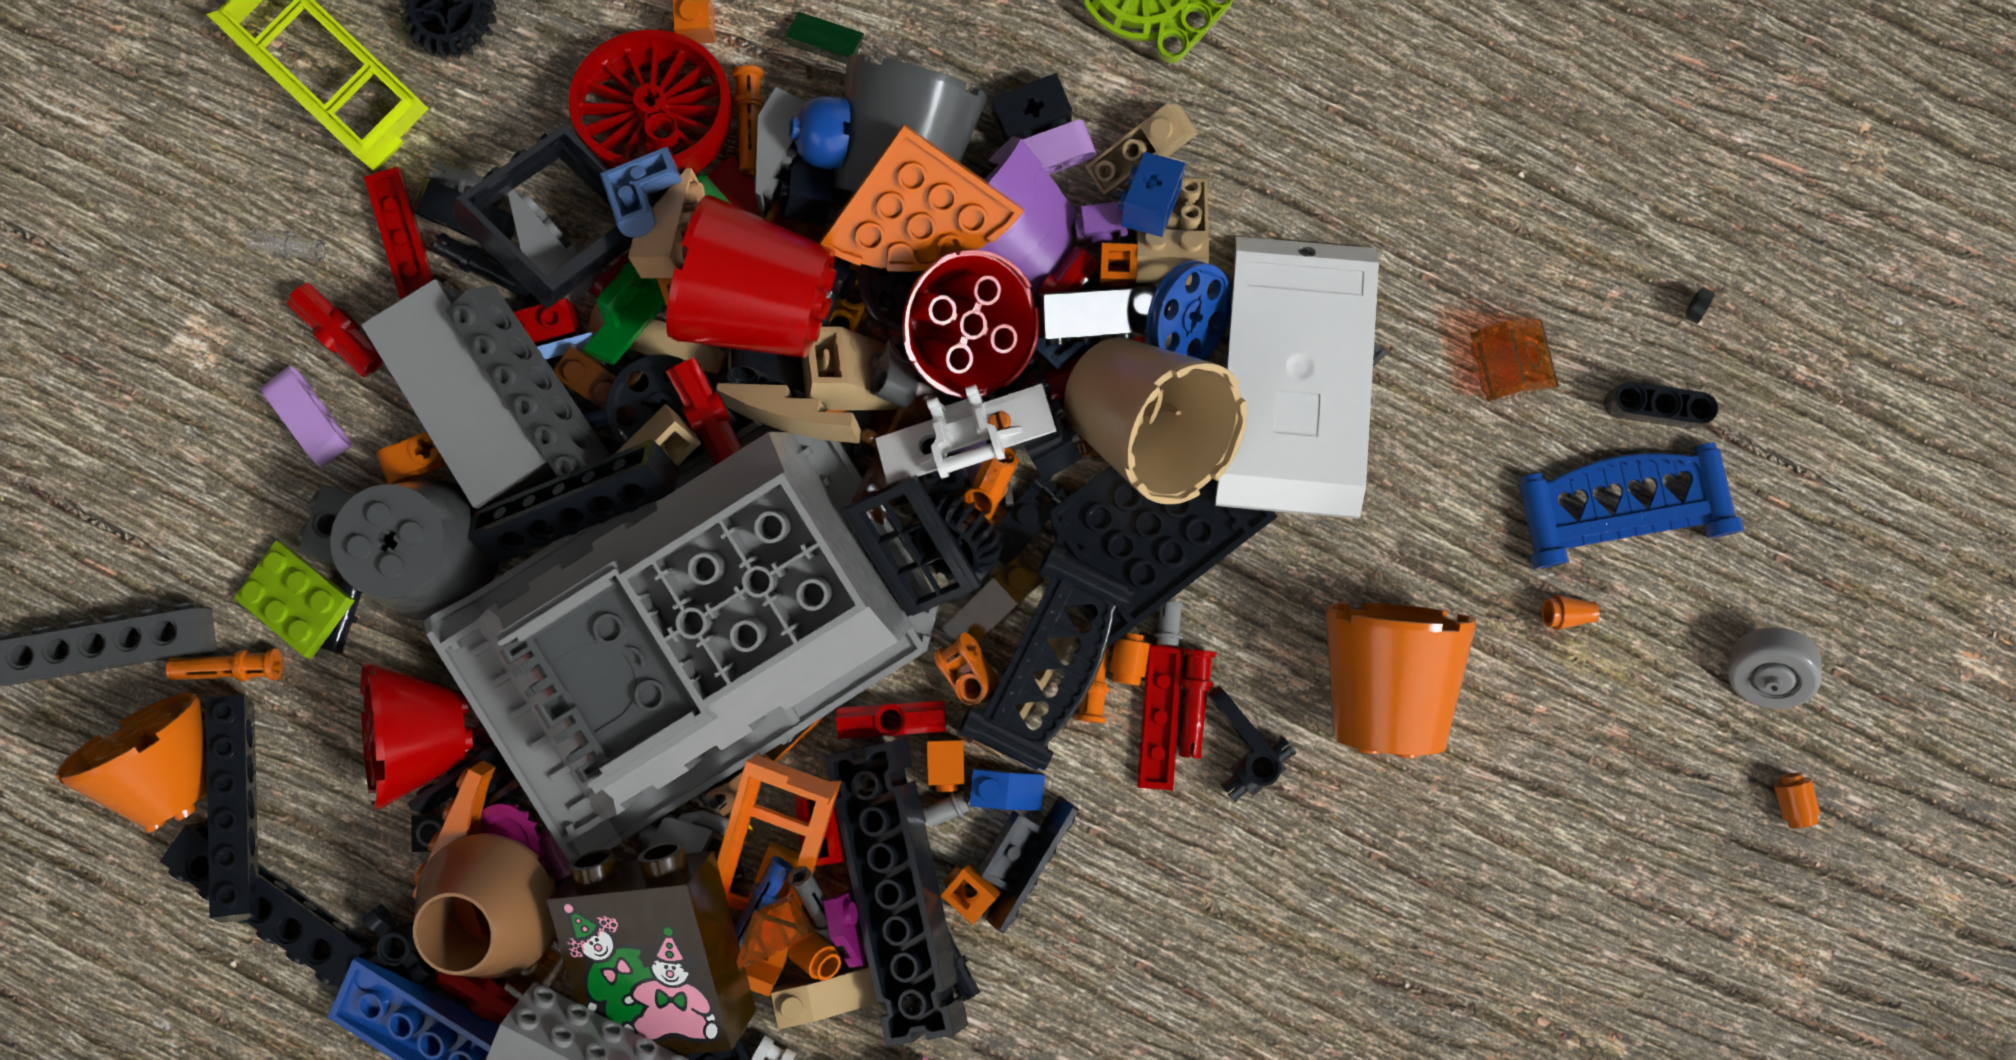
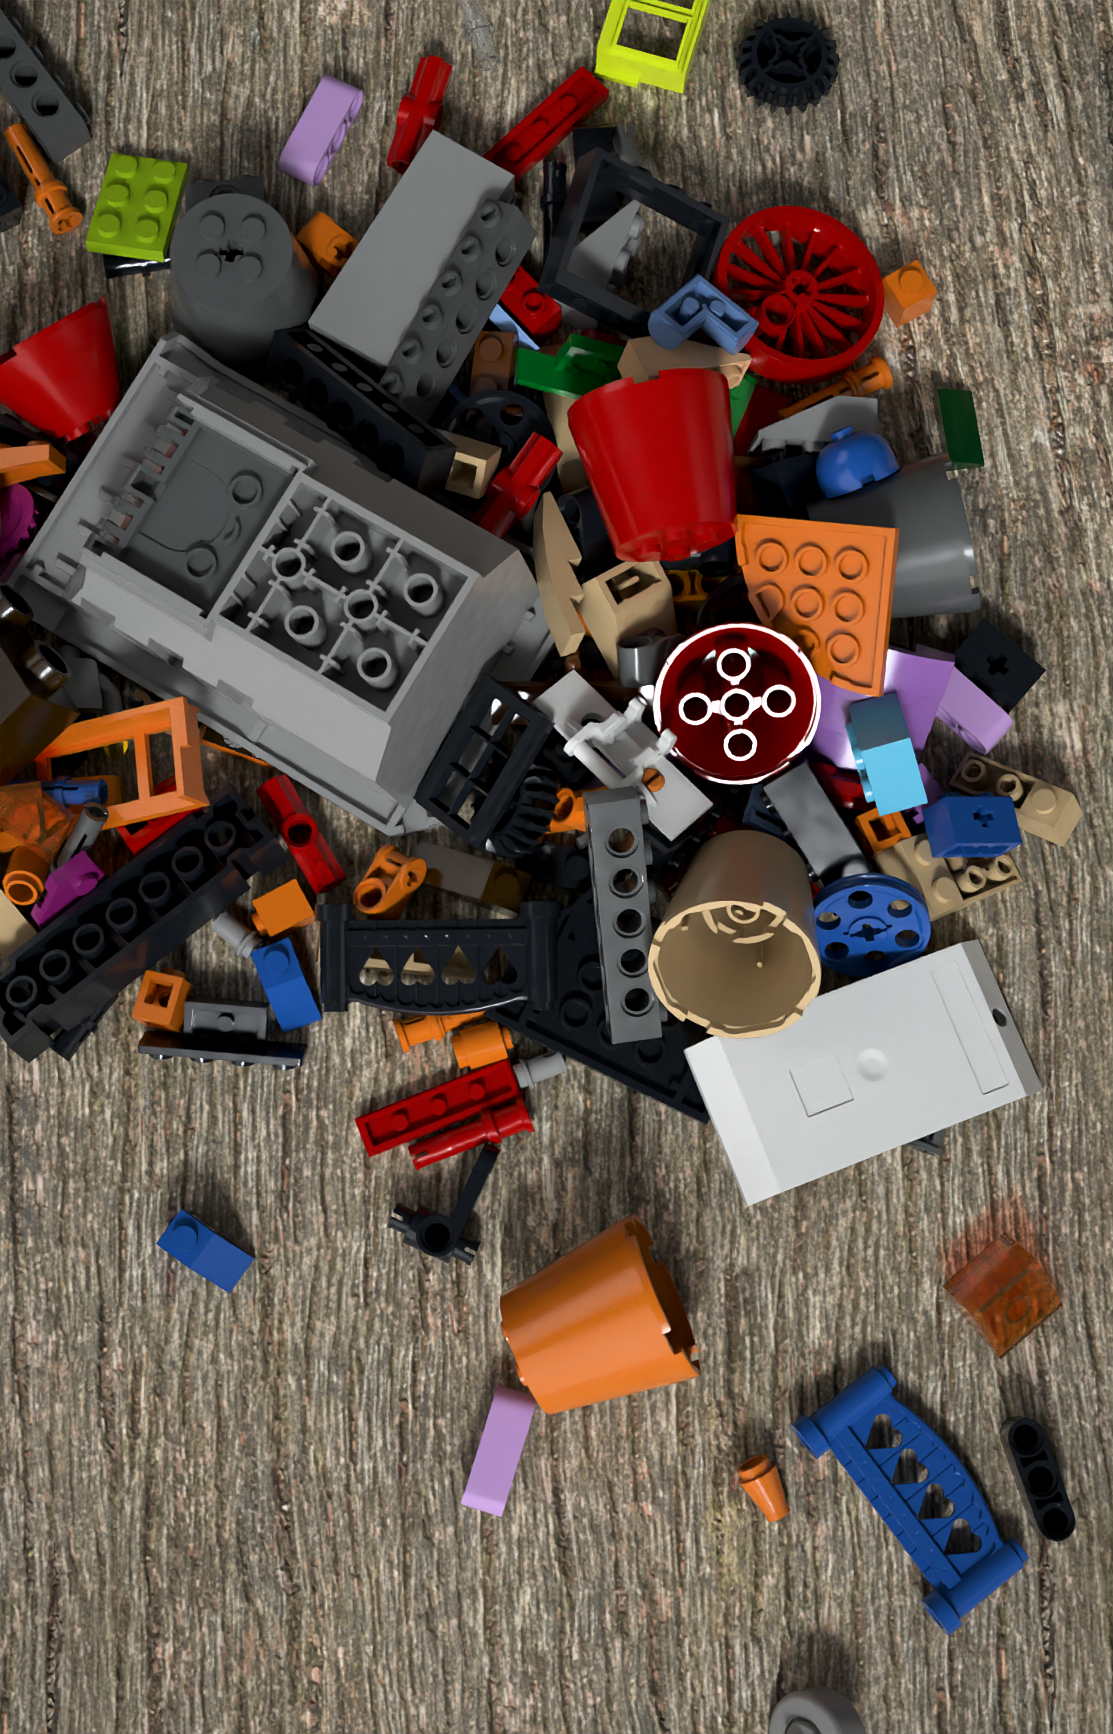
camera: 60 degrees right, 5 degrees down
(1014, 472) = (604, 812): none -> dark grey brick
(1067, 230) = (885, 755): none -> medium azure brick
(1183, 954) = (205, 1250): none -> blue slope
(1446, 800) = (499, 1450): none -> lavender beam

